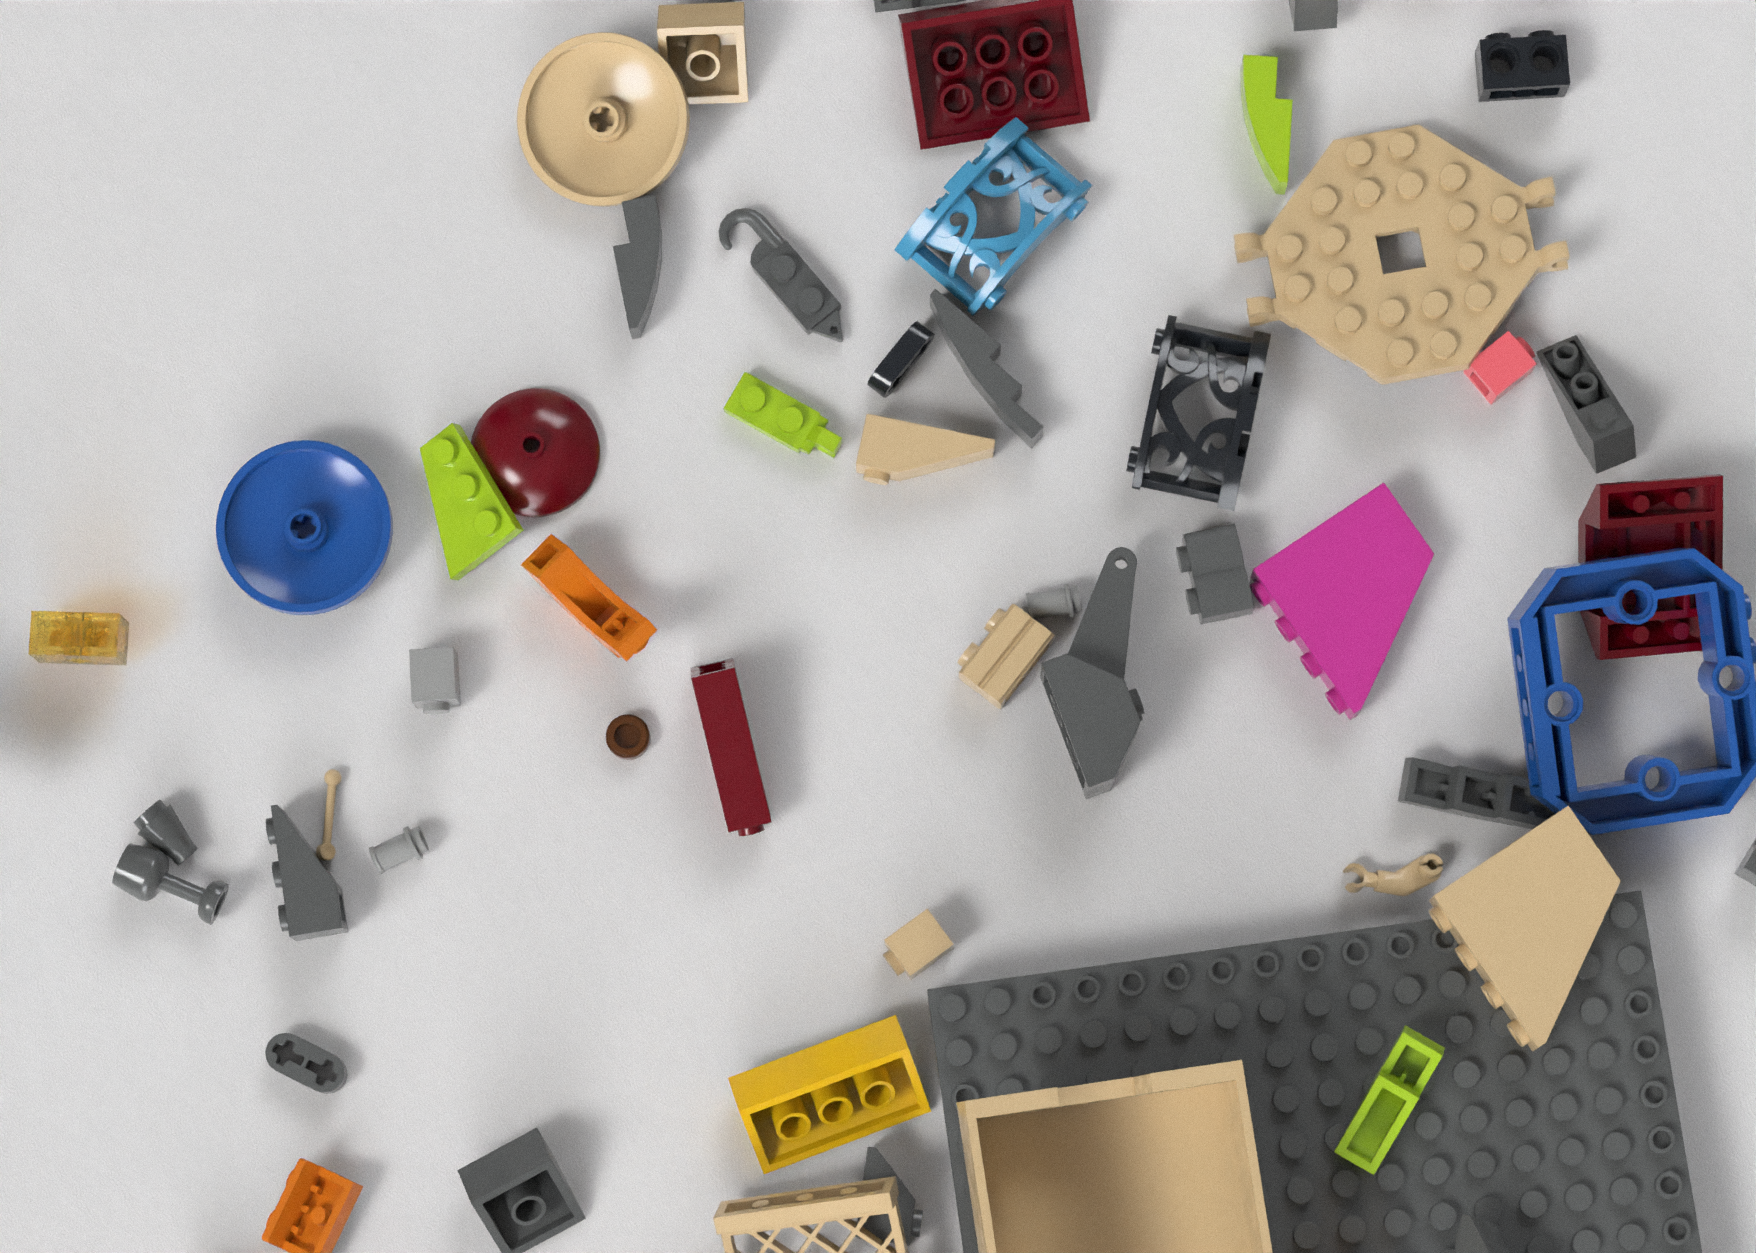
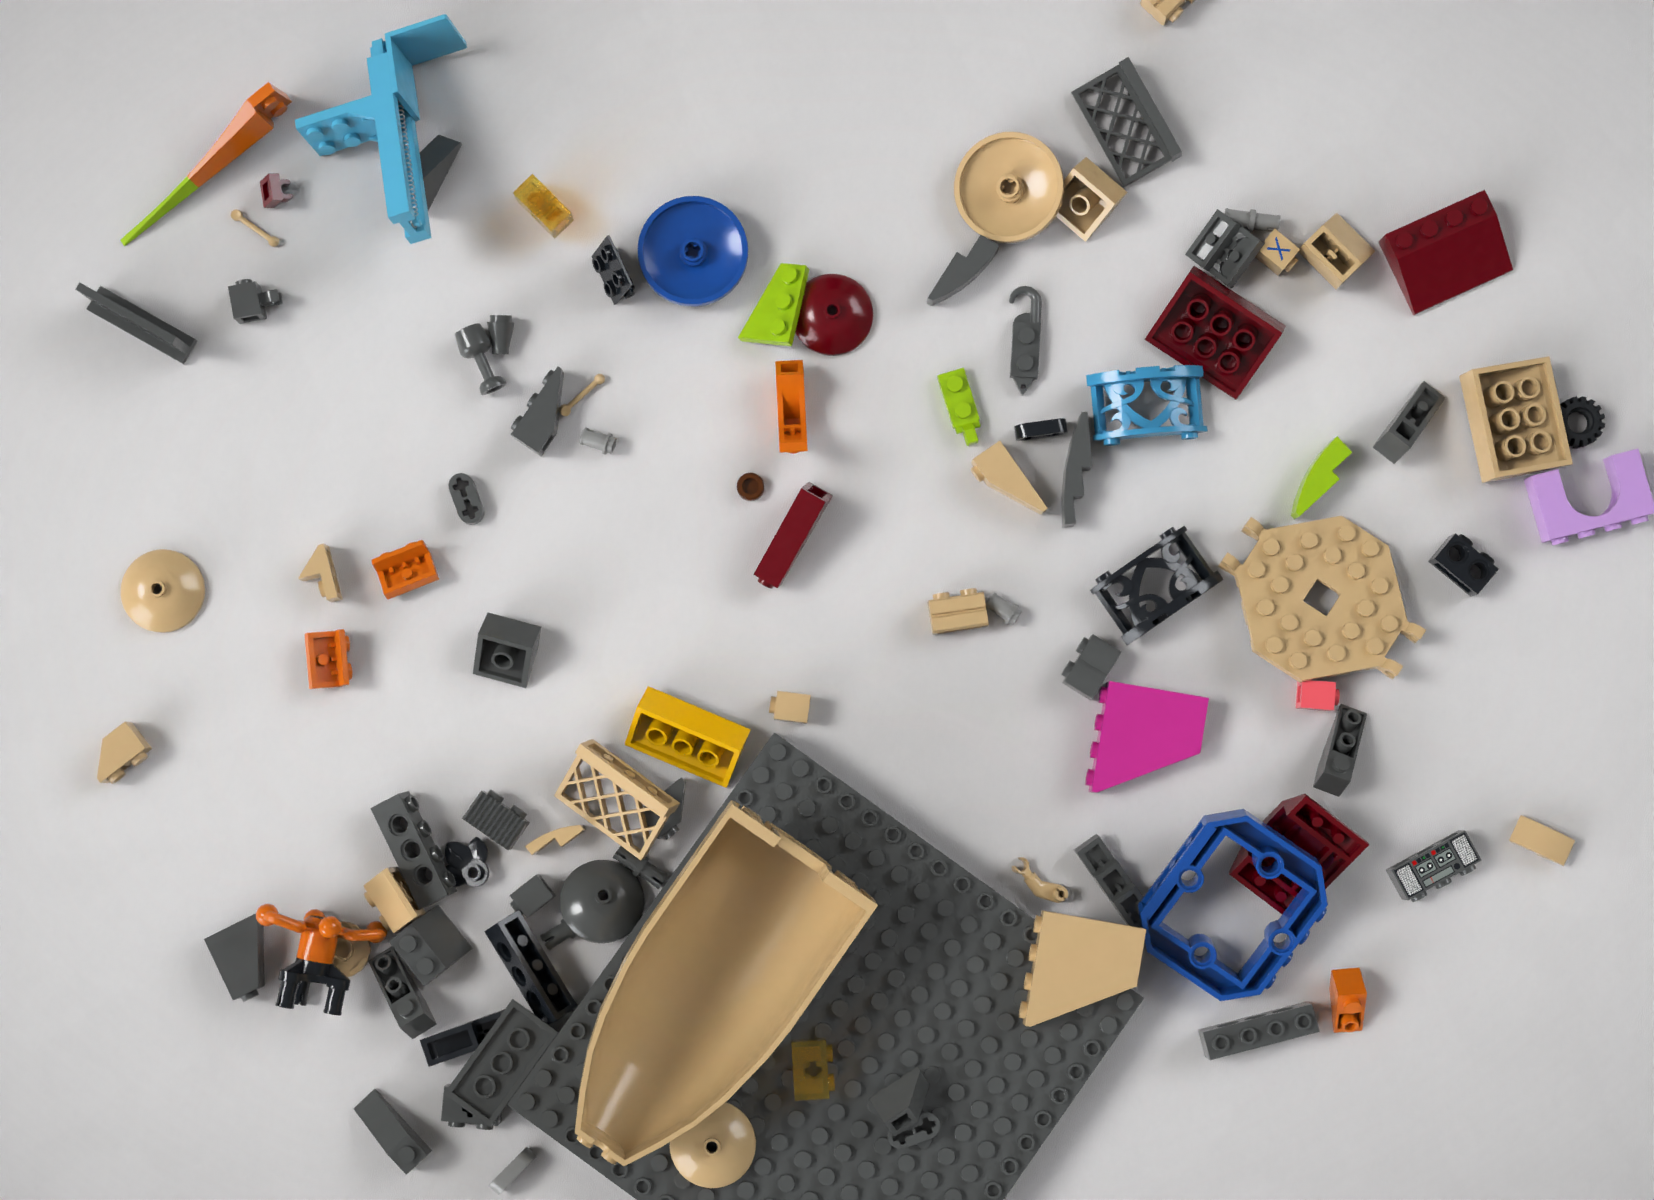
camera: 35 degrees right, 5 degrees up
(231, 637) = (612, 271): none -> black hinge
(434, 679) = (687, 377): light grey brick -> none
(1088, 683) = (982, 661): dark grey slope -> none
(1389, 1100) = (935, 983): lime slope -> none

